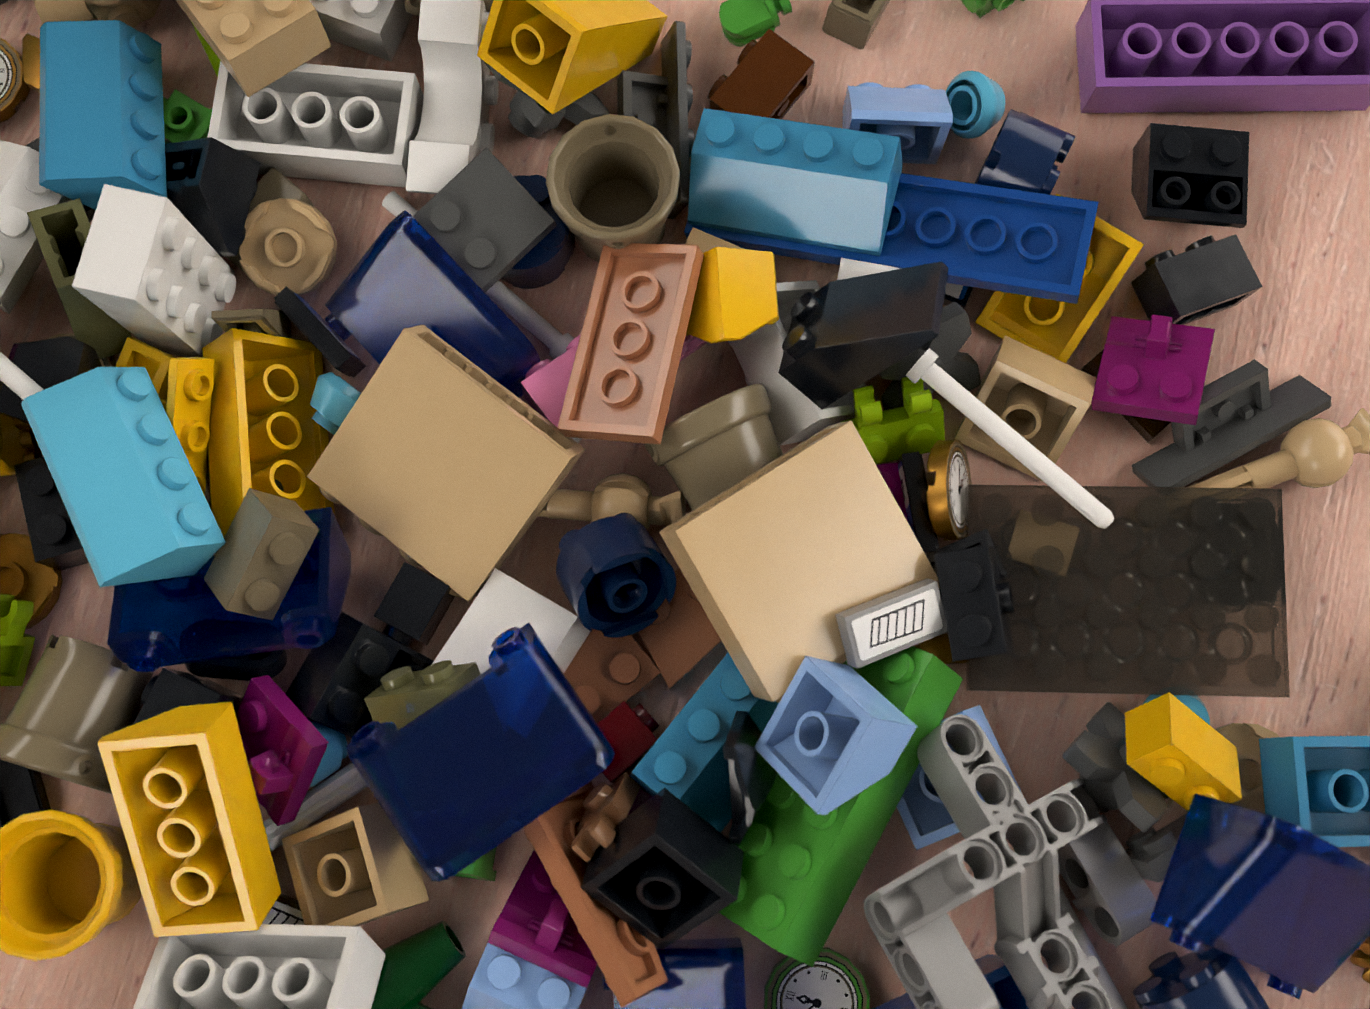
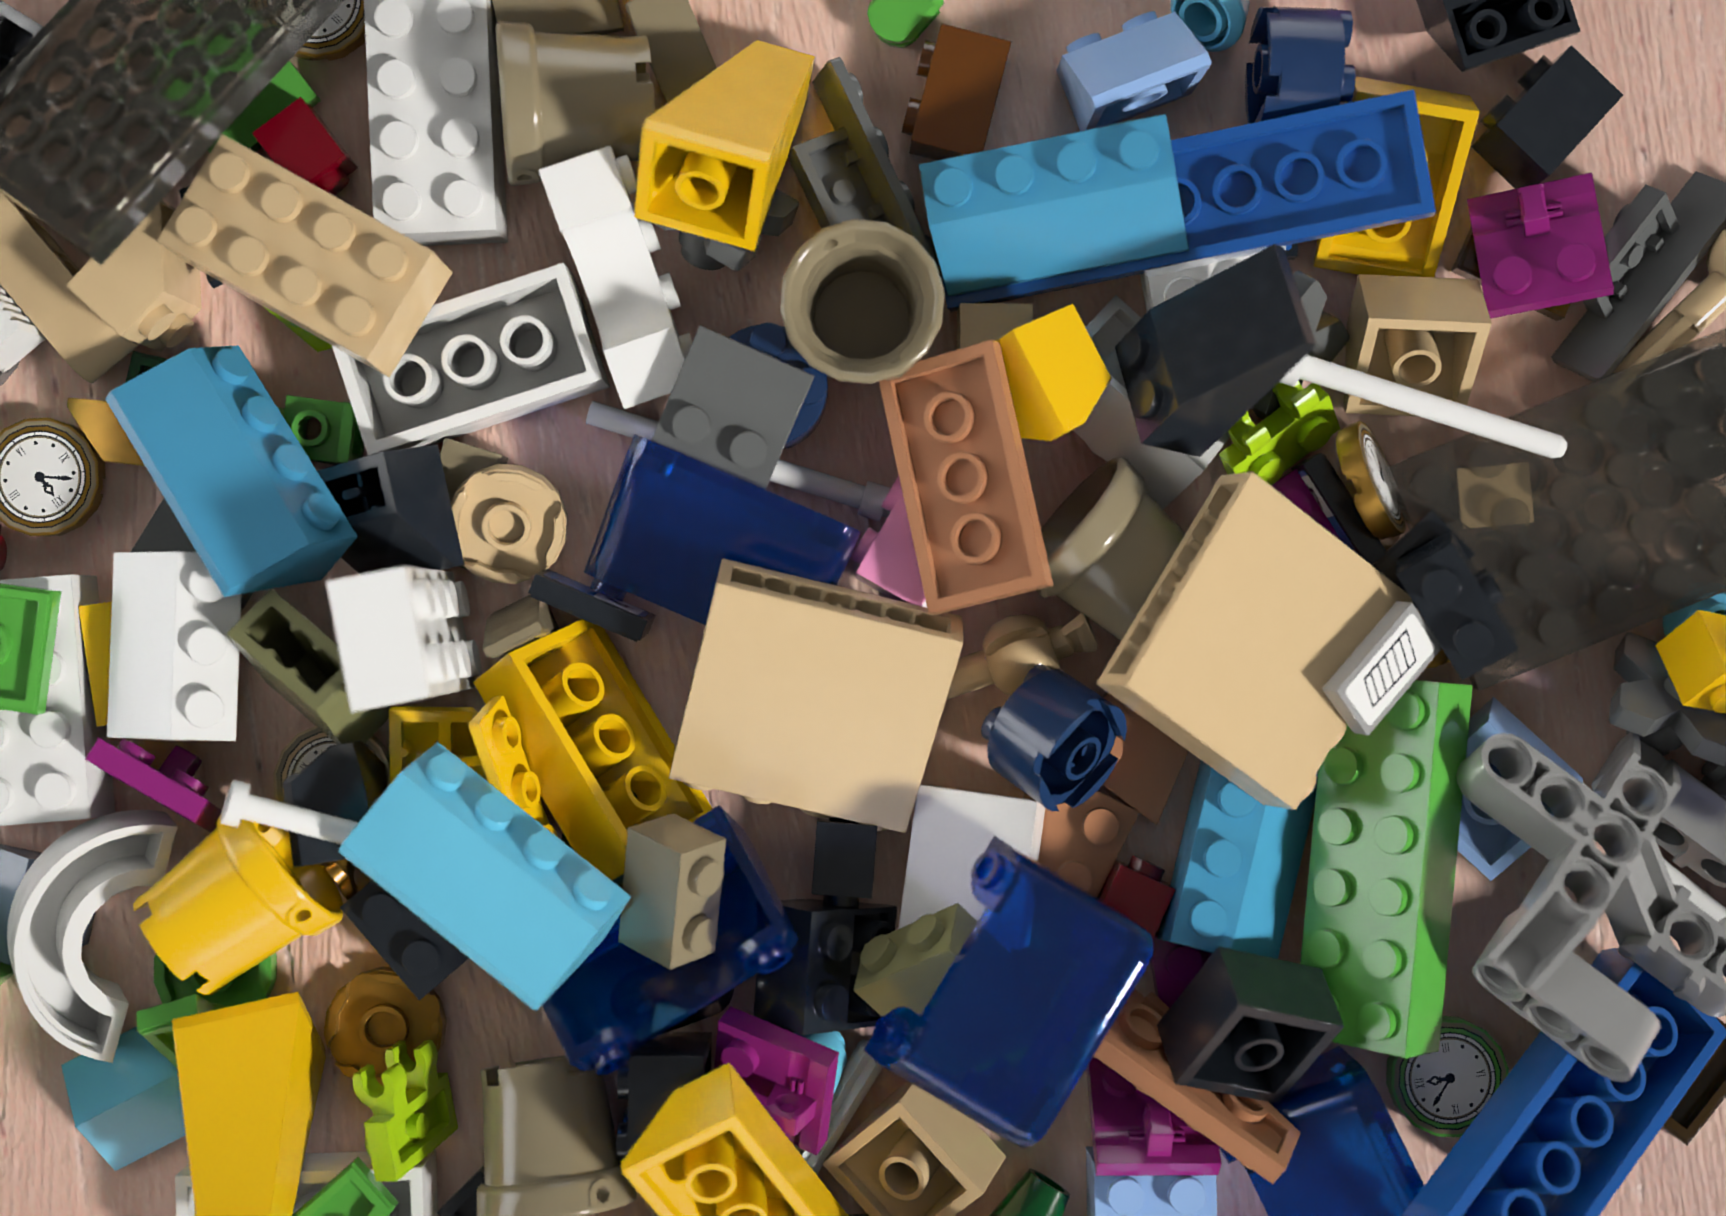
camera: 30 degrees left, 10 degrees up
(332, 400) = (656, 677): medium azure cone -> none
(604, 810) = (1157, 997): medium nougat plate -> none
(749, 774) = (1299, 890): black slope -> none
(833, 734) = (1374, 818): light blue slope -> none

